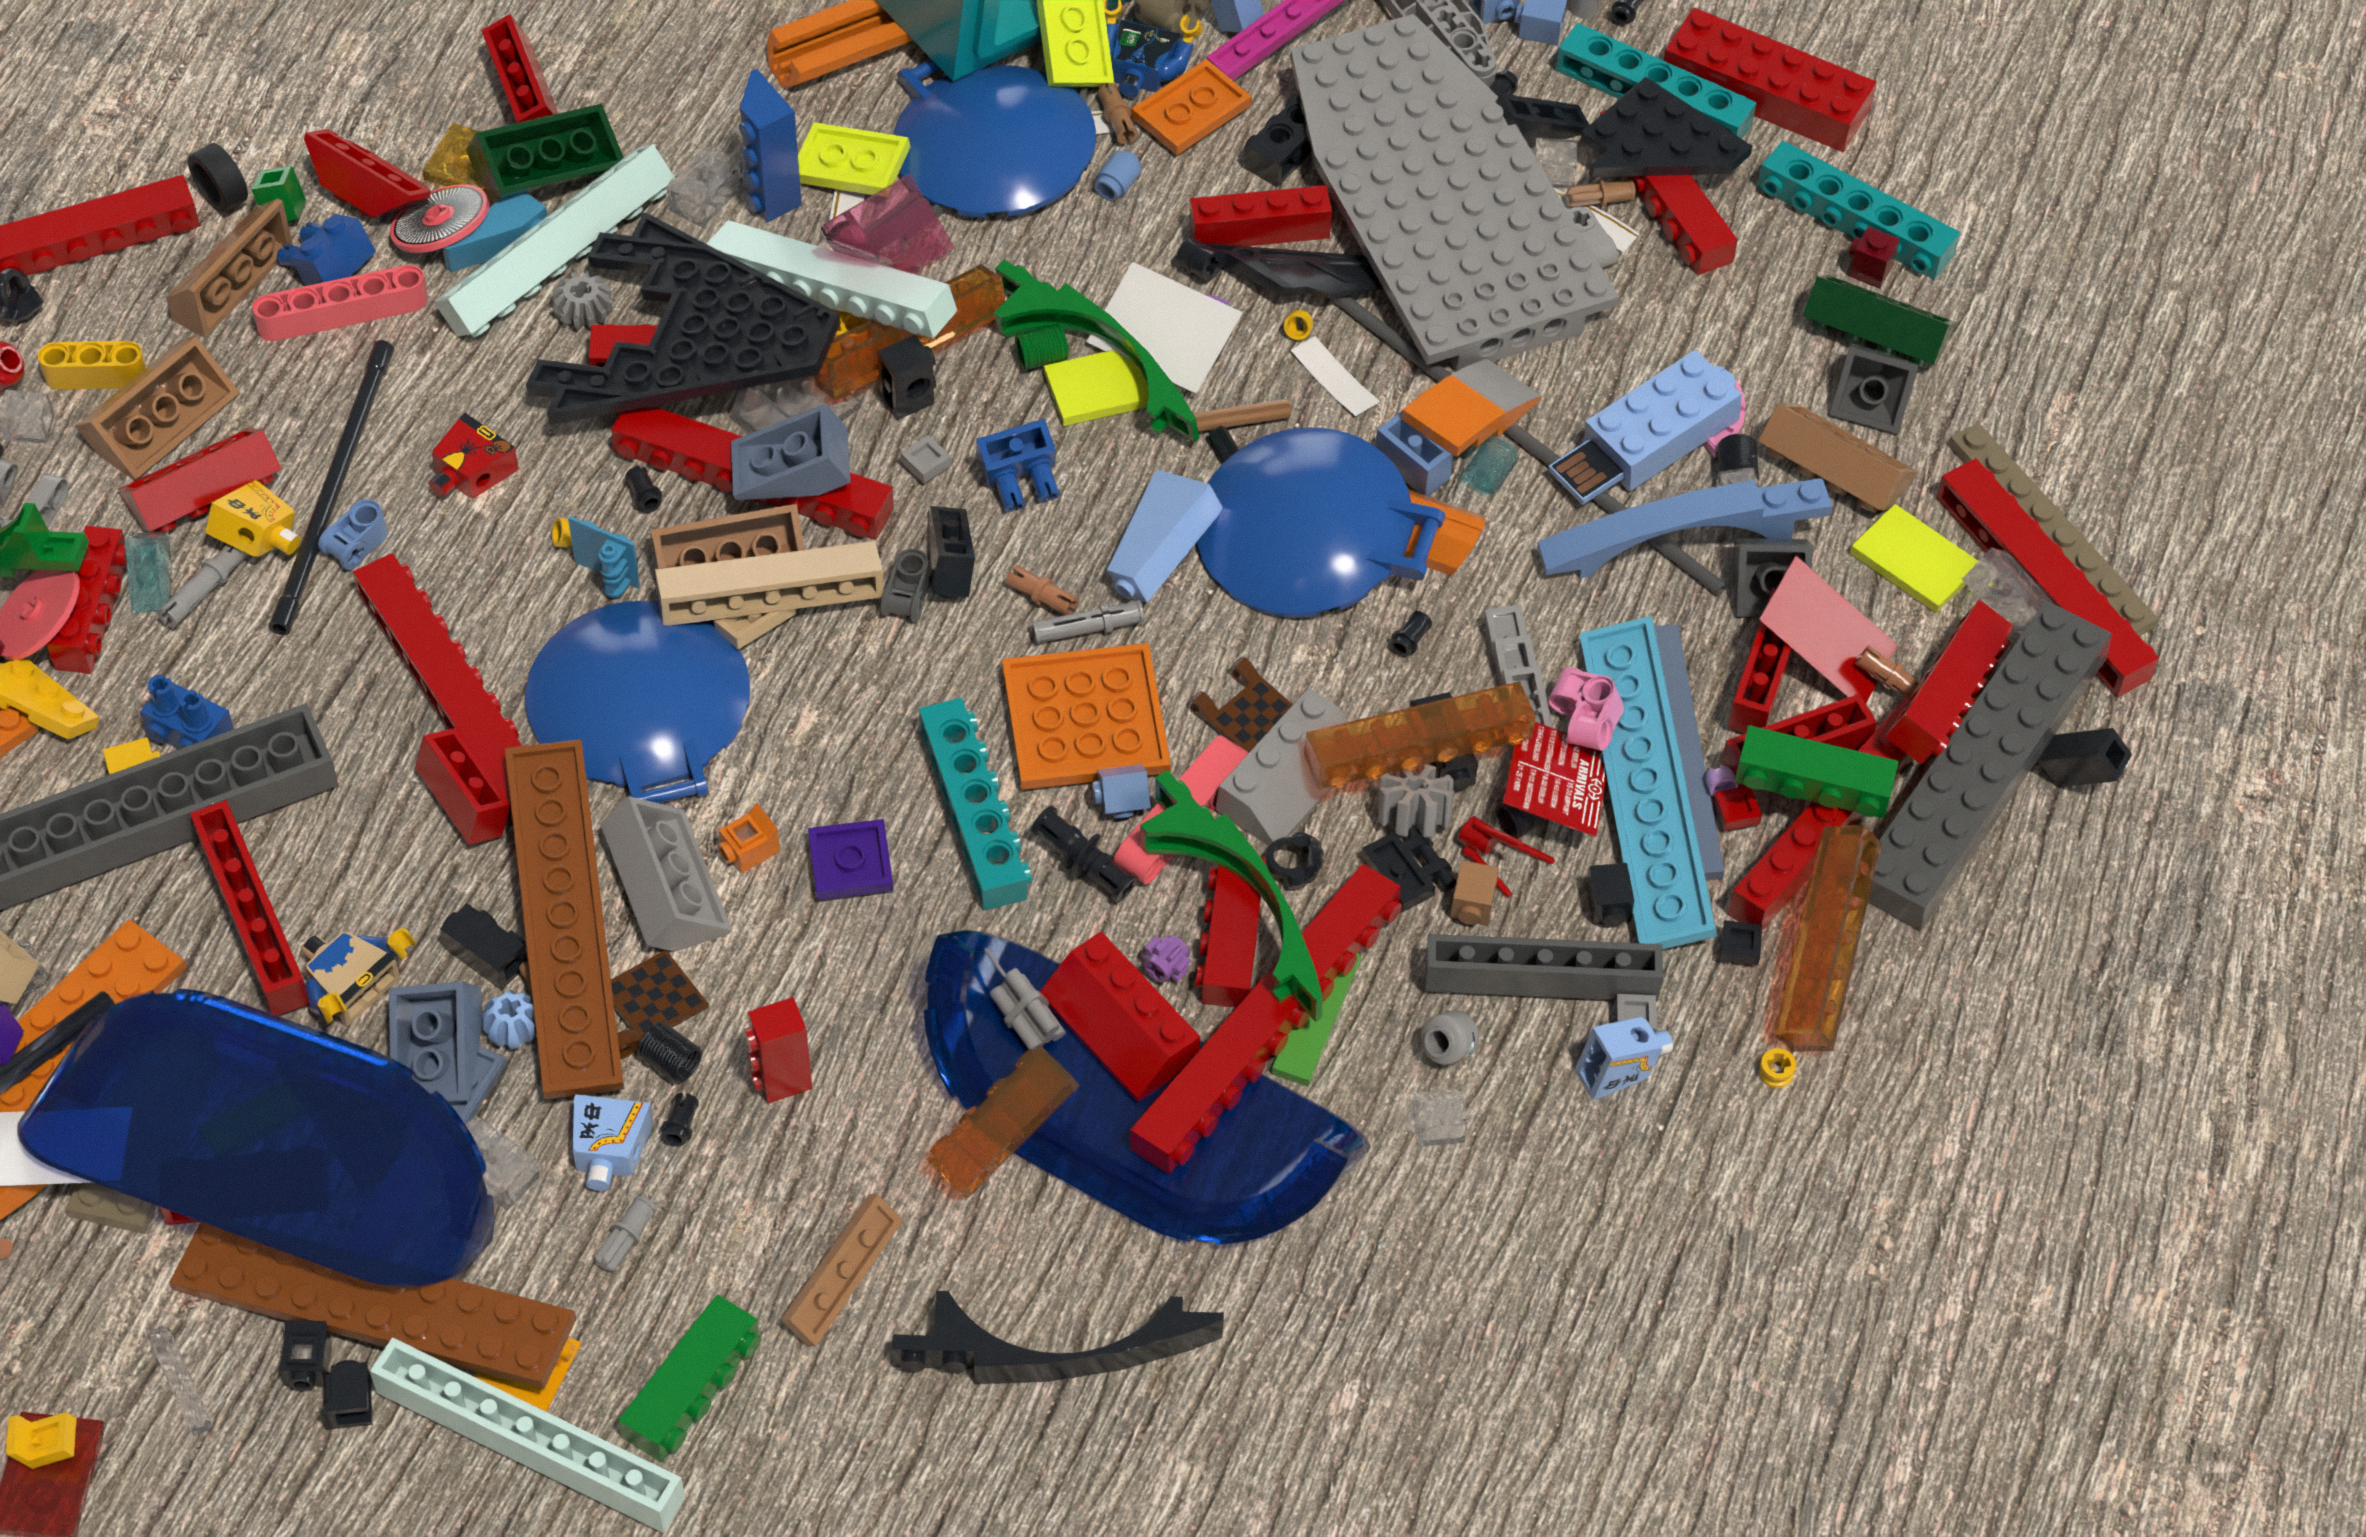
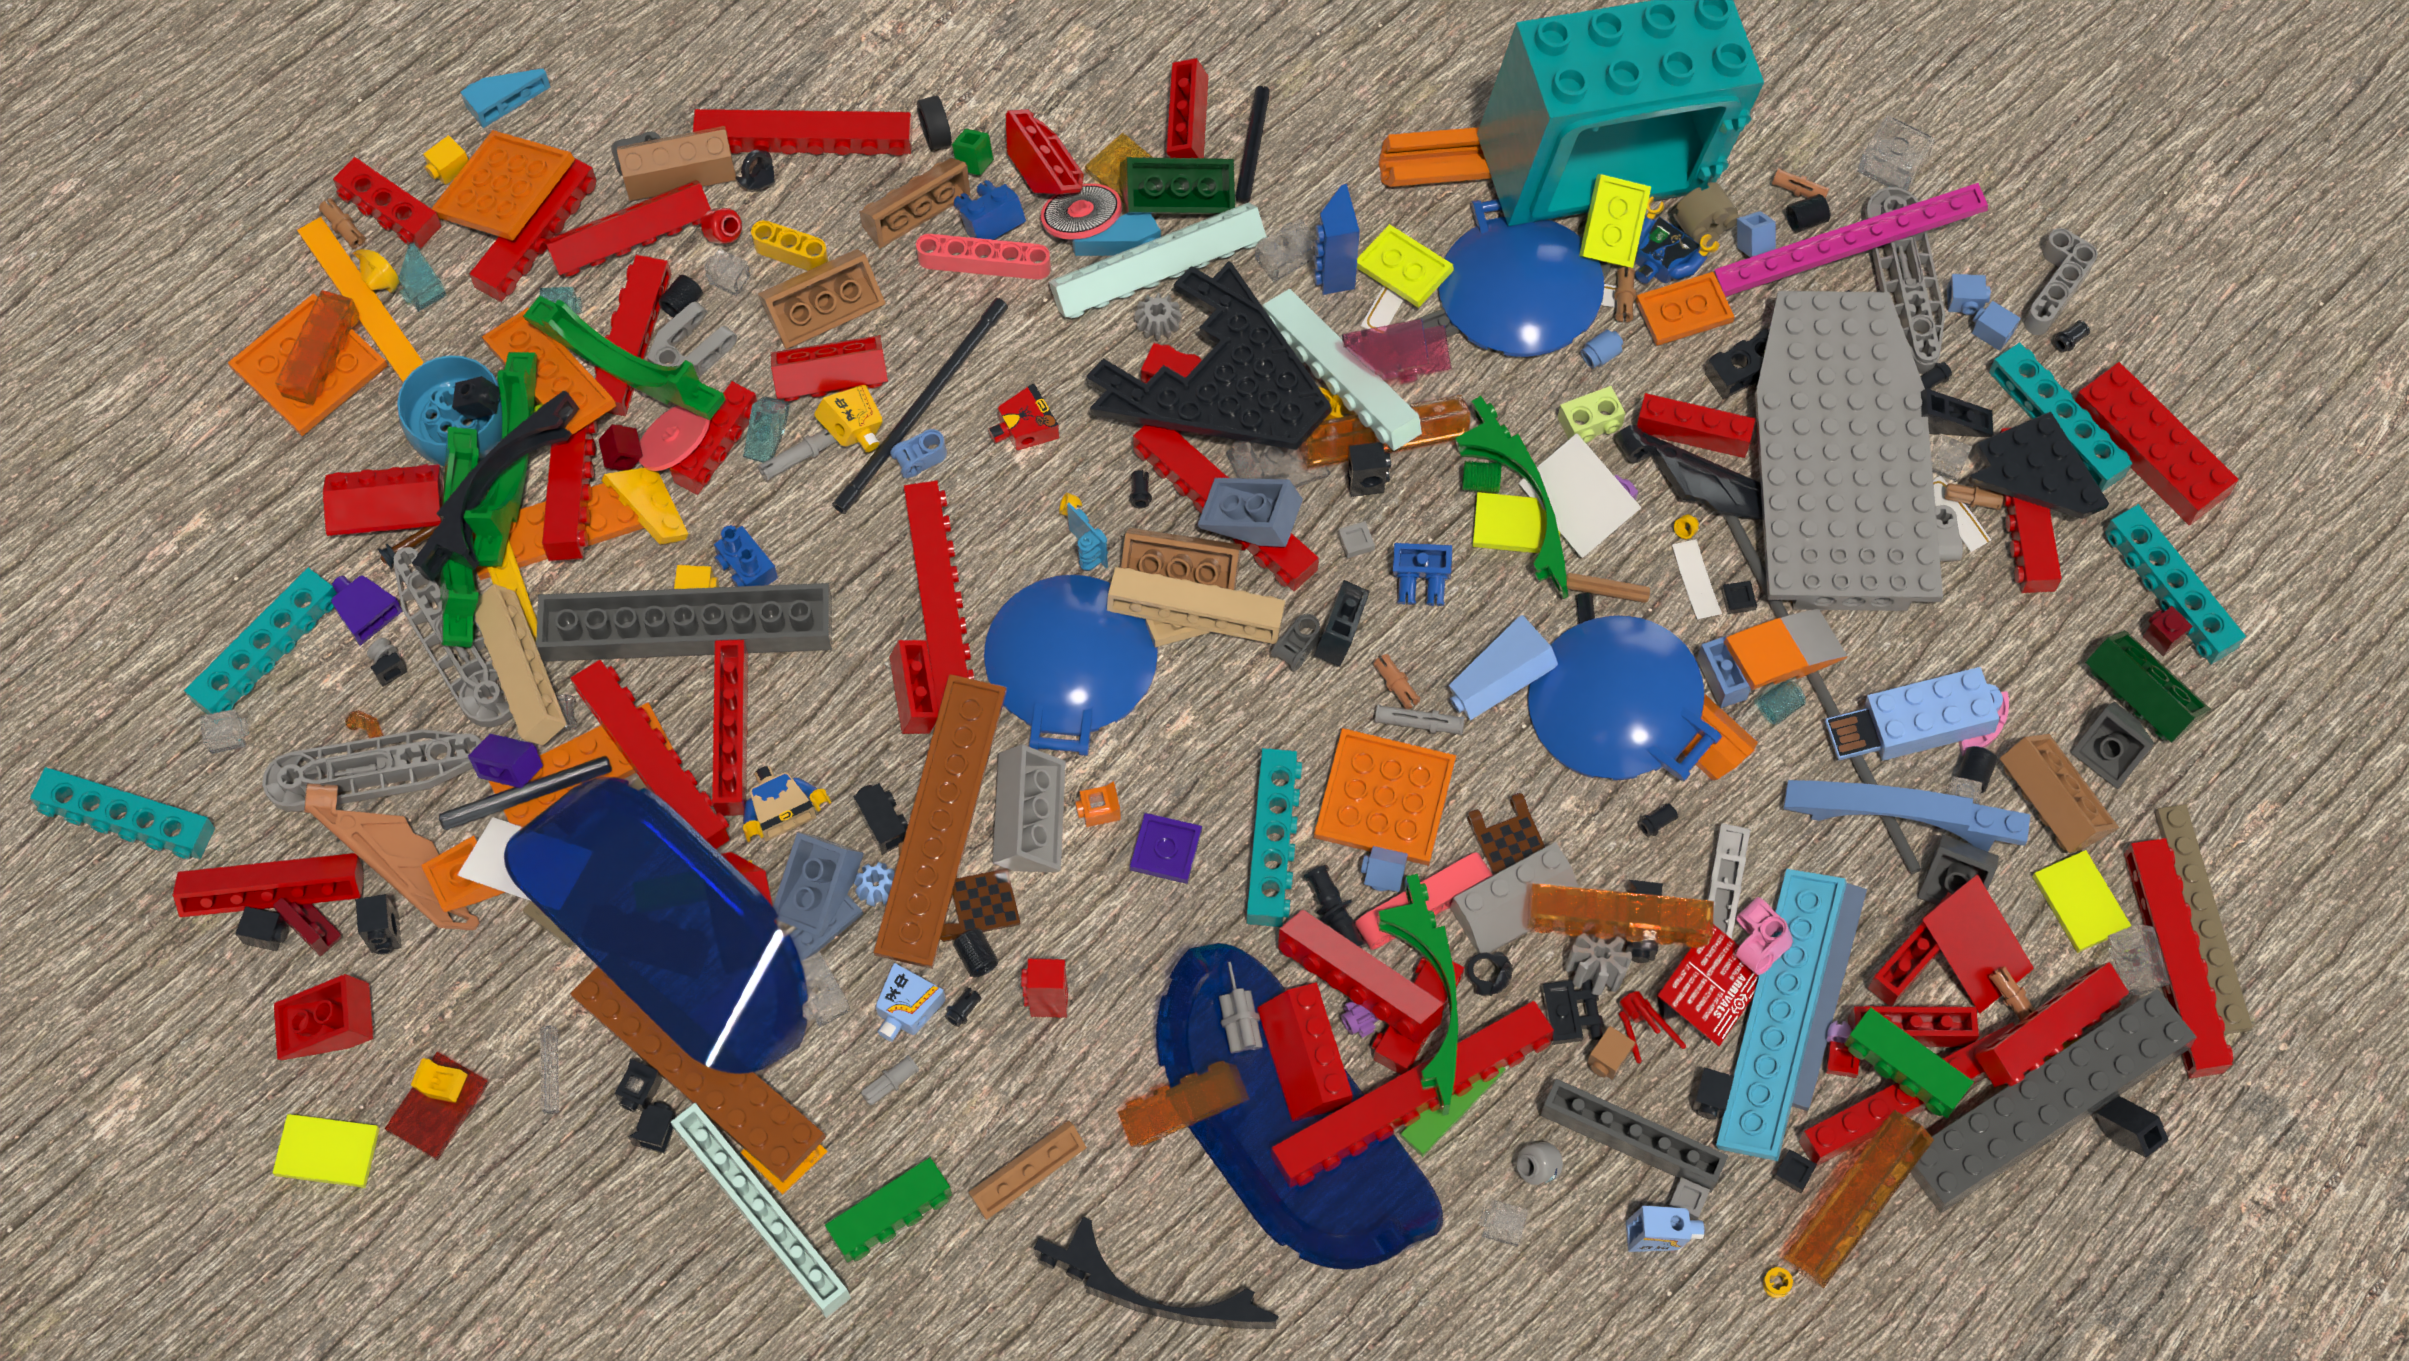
camera: 25 degrees right, 10 degrees up
(133, 955) = (646, 750): none -> red brick
(612, 90) = (1252, 144): none -> black axle
(1141, 239) = (1588, 410): none -> yellowish green brick
(1149, 907) = (1360, 976): none -> brick
(1391, 378) = (1739, 597): none -> black tile

